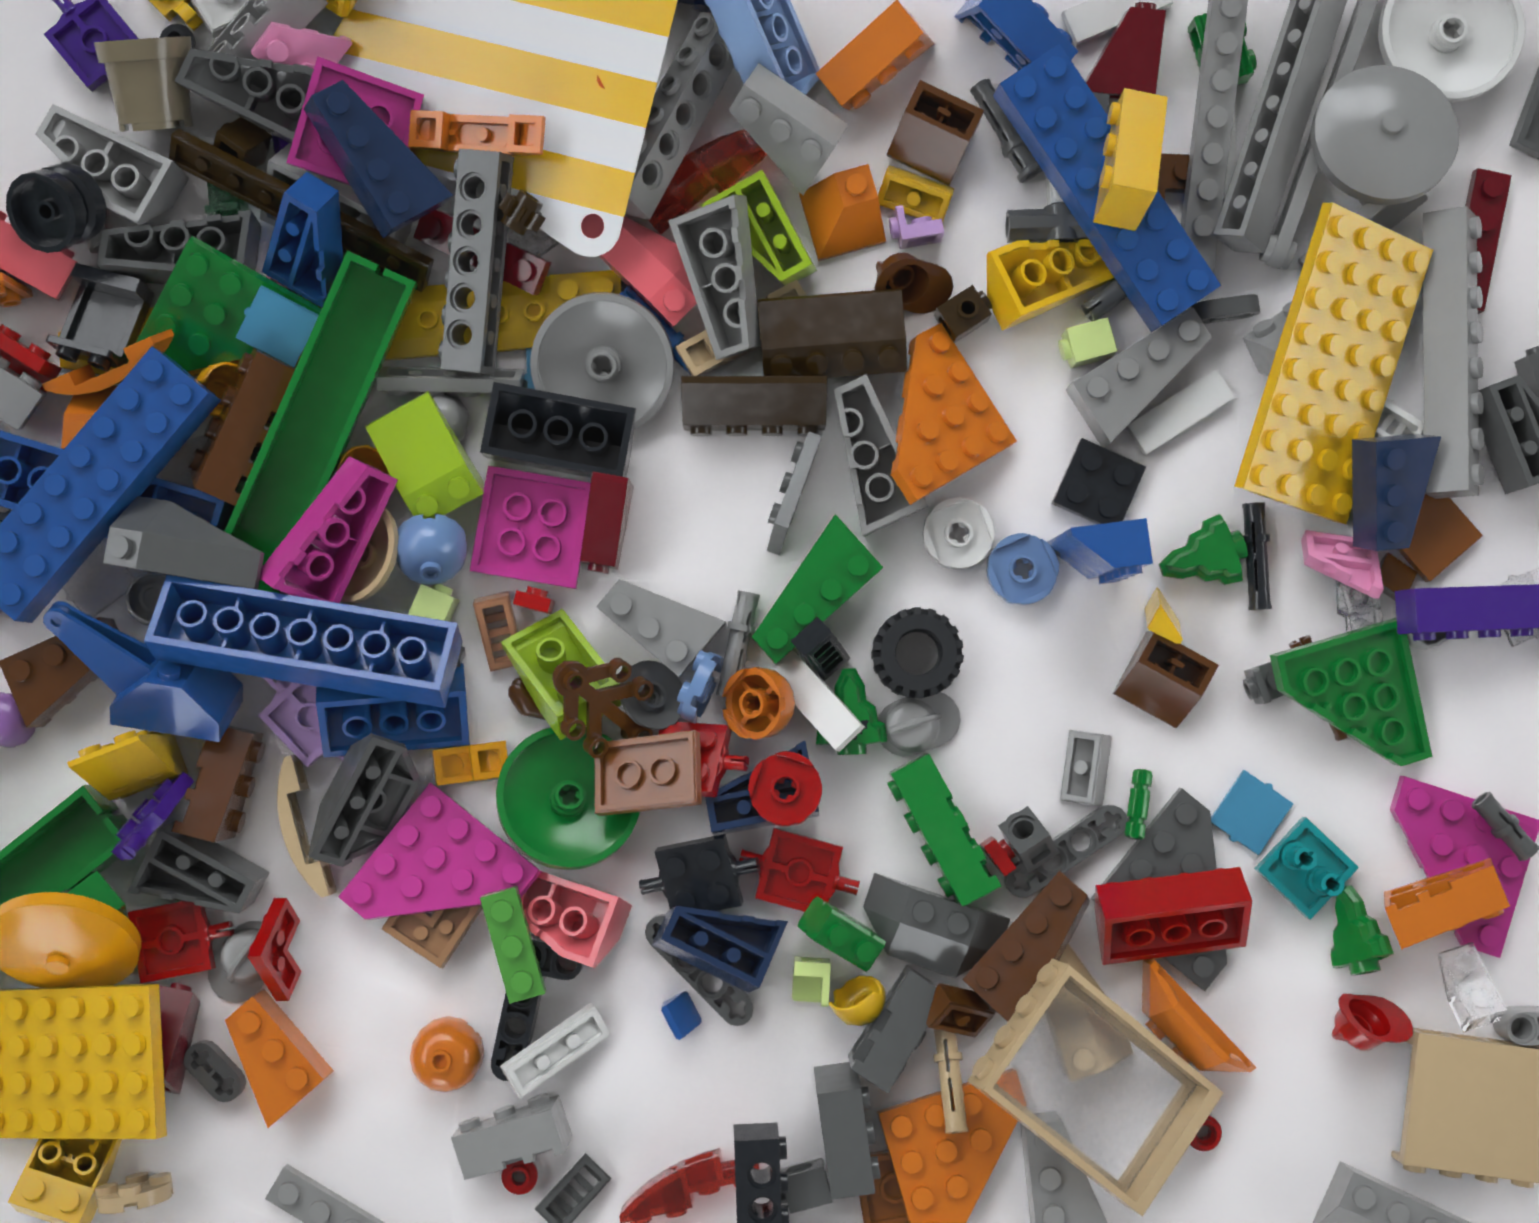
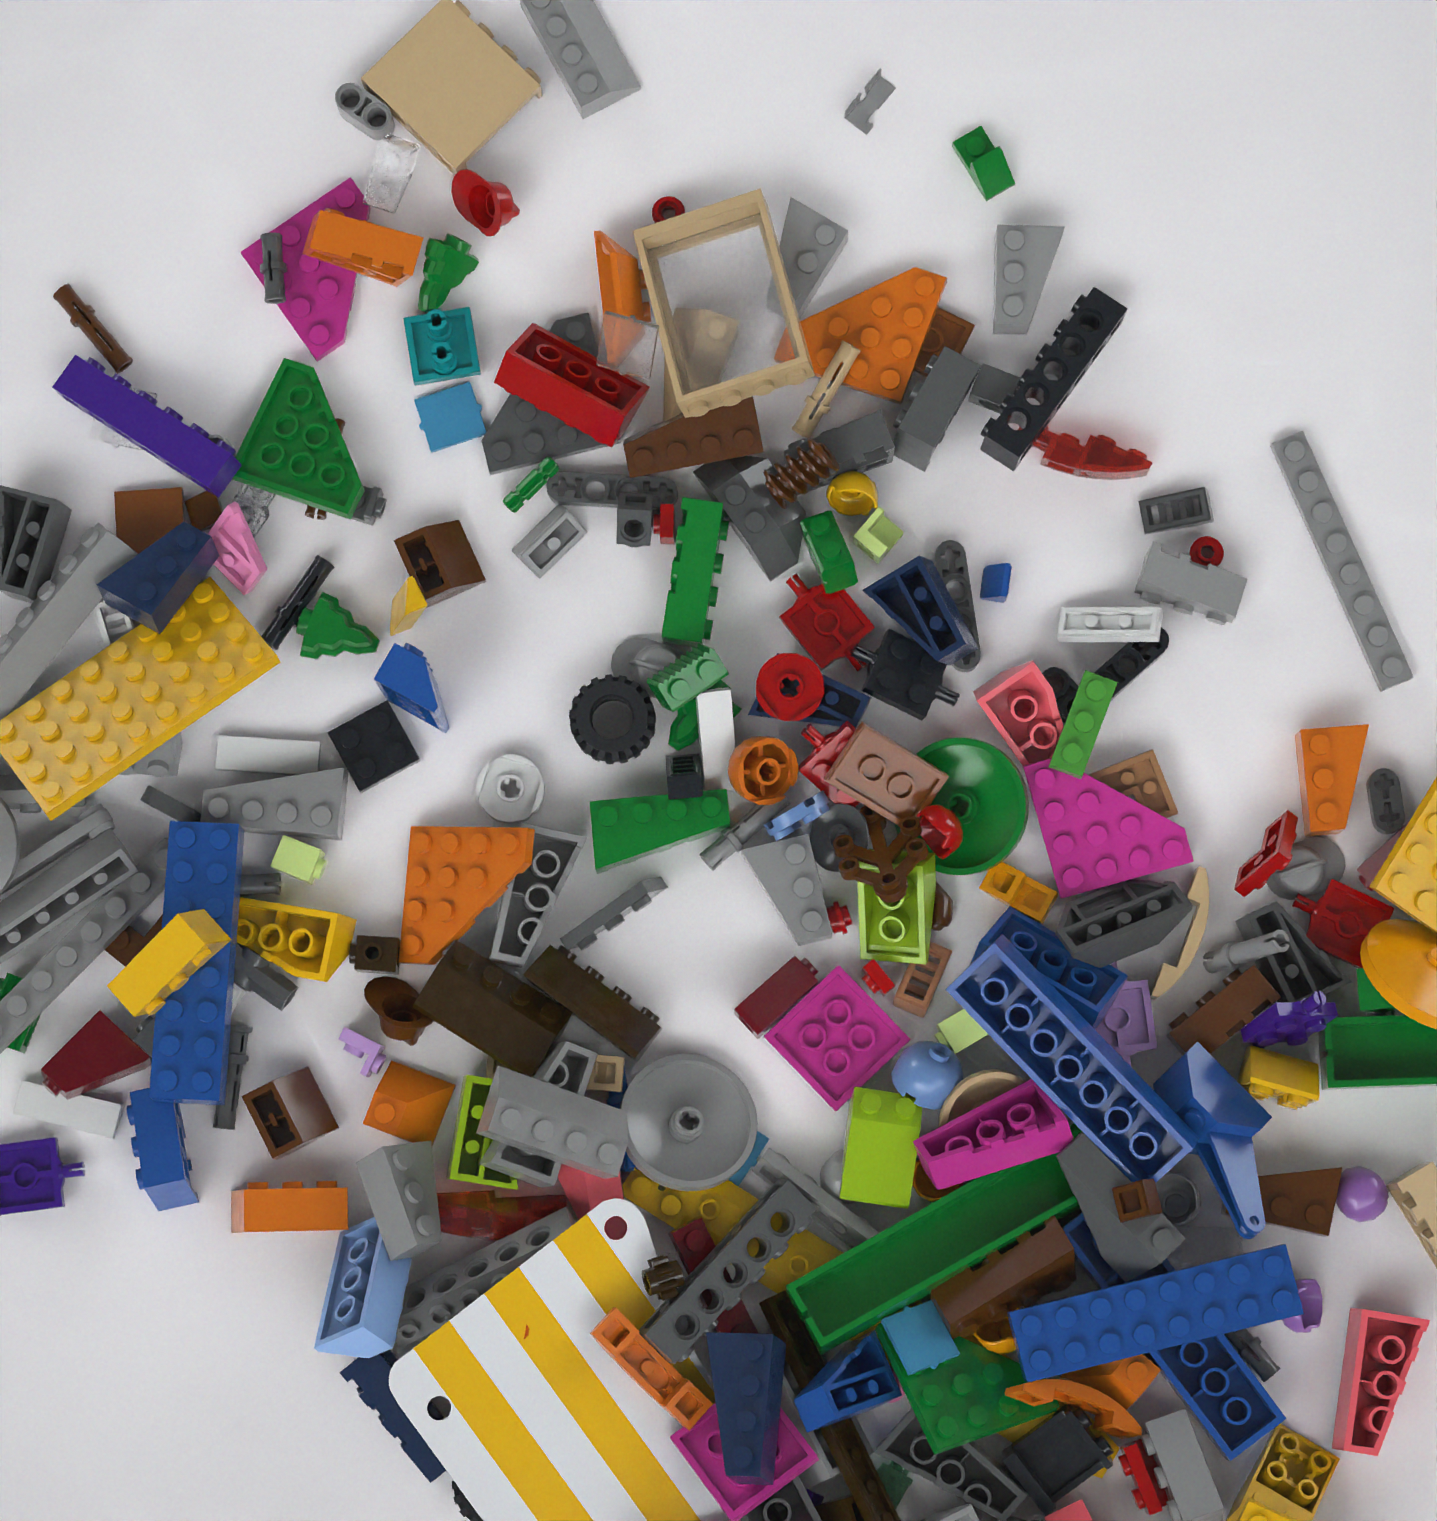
camera: 135 degrees left, 5 degrees down
(163, 563) = (1137, 1200): none -> reddish brown slope
(242, 842) = (1237, 954): none -> light grey pin
(446, 1054) = (1197, 683): orange cylinder -> none
(557, 432) = (761, 1092): black slope -> none
(567, 762) = (940, 830): none -> red hair
(603, 628) = (839, 917): none -> red plate
(704, 268) = (555, 1123): none -> light grey slope
(879, 733) = (687, 677): none -> green brick
(916, 194) = (340, 1079): yellow slope -> none
(916, 984) = (800, 472): none -> reddish brown piece
(958, 1011) = (782, 430): reddish brown slope -> none
(1030, 550) = (471, 709): medium blue plate -> none
(1151, 986) = (627, 345): none -> clear piece

